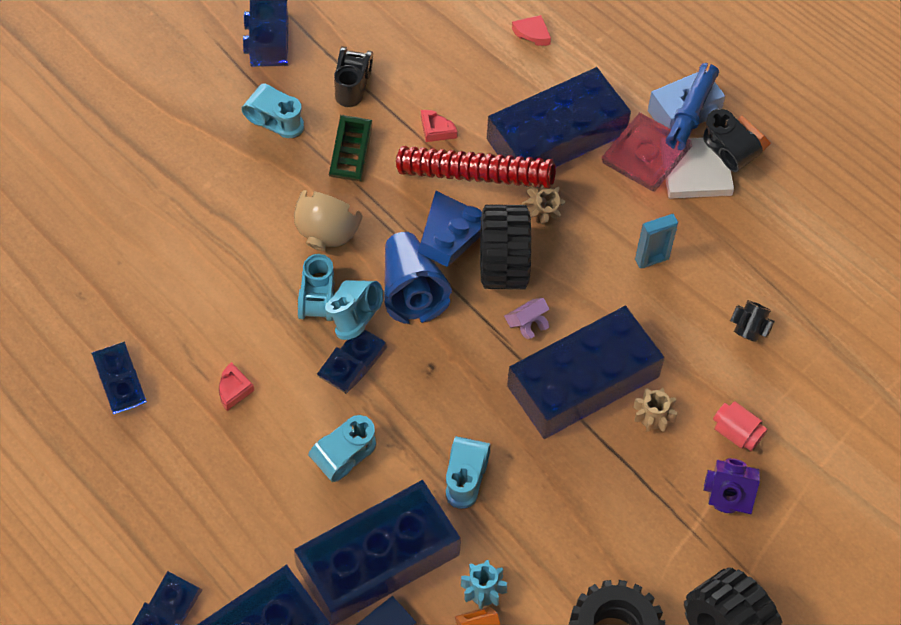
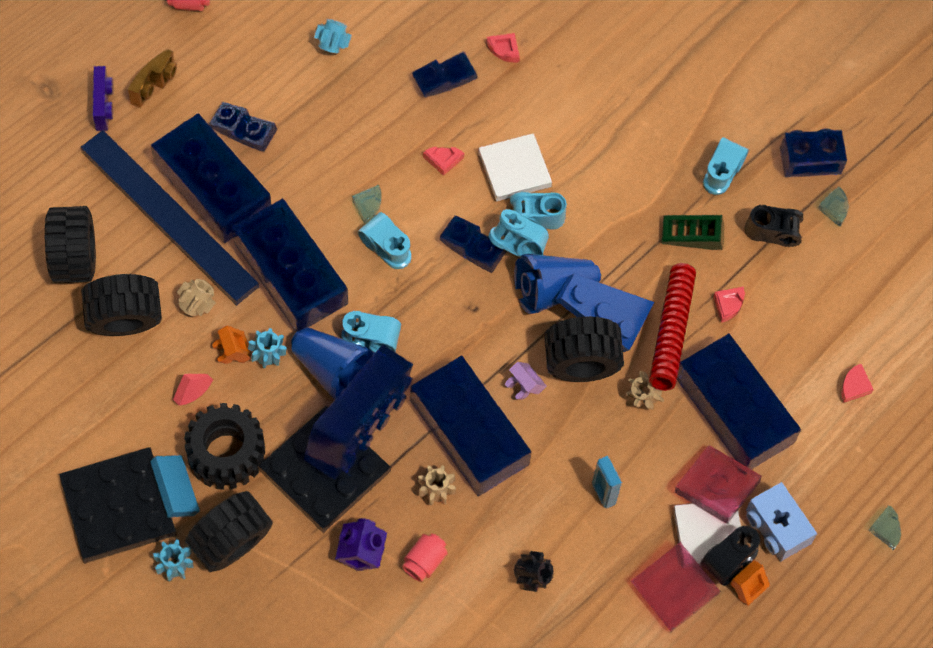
camera: 85 degrees right, 5 degrees up
(49, 497) = (332, 36): none -> medium azure gear
(88, 313) = (504, 47): none -> coral tile
(254, 313) = (514, 167): none -> white tile
(289, 469) = (368, 203): none -> clear light blue tile
(325, 220) = (605, 209): tan cylinder -> none
(329, 23) = (835, 206): none -> clear light blue tile
(506, 509) = (329, 358): none -> blue cone
(586, 471) = (359, 412): none -> clear blue brick
(632, 528) = (312, 490): none -> black plate
(682, 24) = (887, 528): none -> clear light blue tile
(688, 116) = (763, 515): blue pin -> none
(759, 198) = (675, 587): none -> clear pink tile

